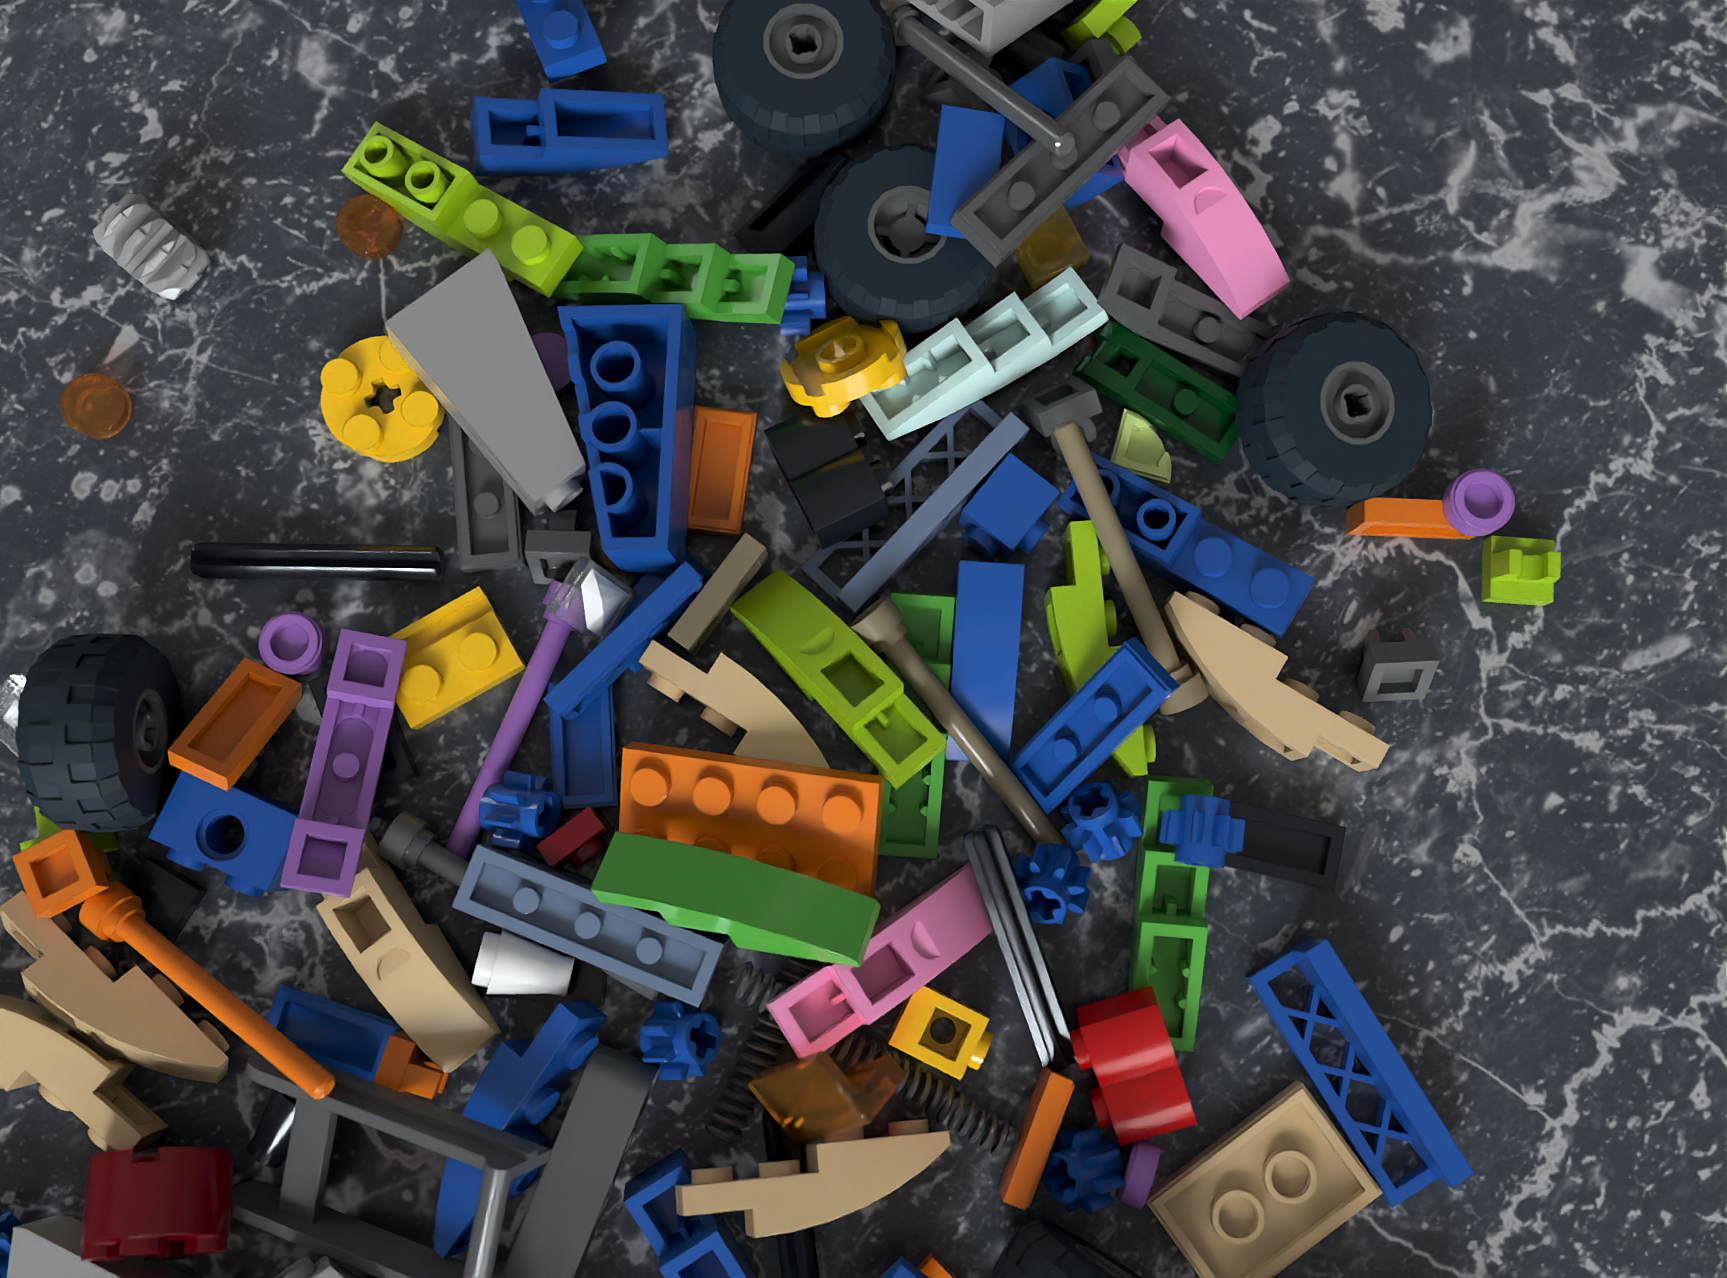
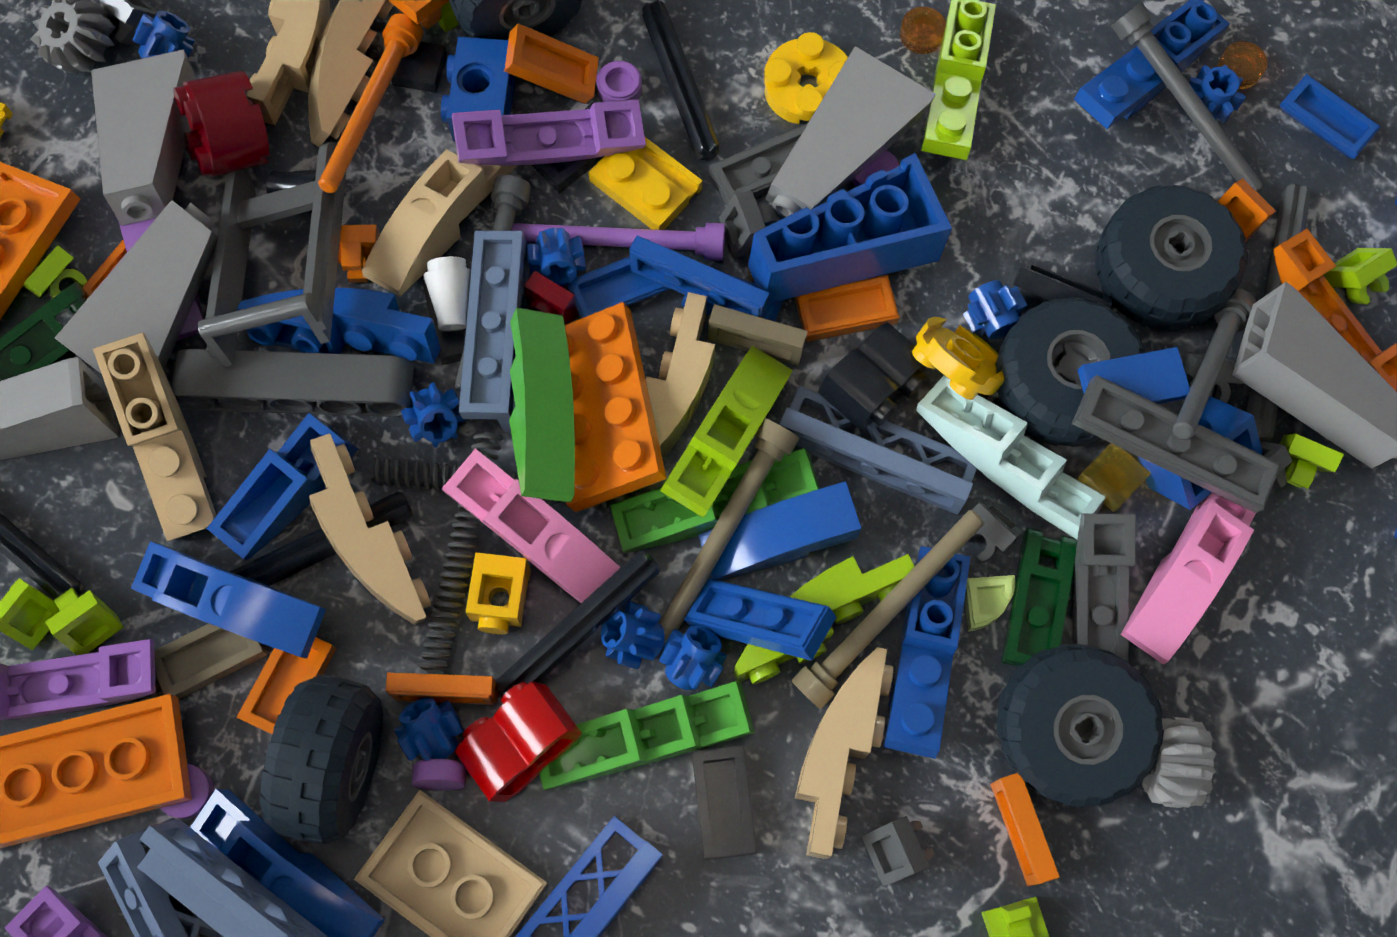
camera: 70 degrees right, 10 degrees down
(332, 1030) = (367, 191): blue tile -> none
(566, 132) = (1045, 124): blue slope -> none
(591, 600) = (720, 246): tile -> none
(699, 276) = (976, 234): bright green slope -> none
(818, 1099) = (418, 509): clear orange panel -> none
(1008, 510) = (900, 513): blue brick -> none
(1202, 831) = (710, 726): blue gear -> none
(1416, 311) = (1182, 765): none -> light grey gear
(1478, 502) = (1053, 862): medium lavender tile -> none

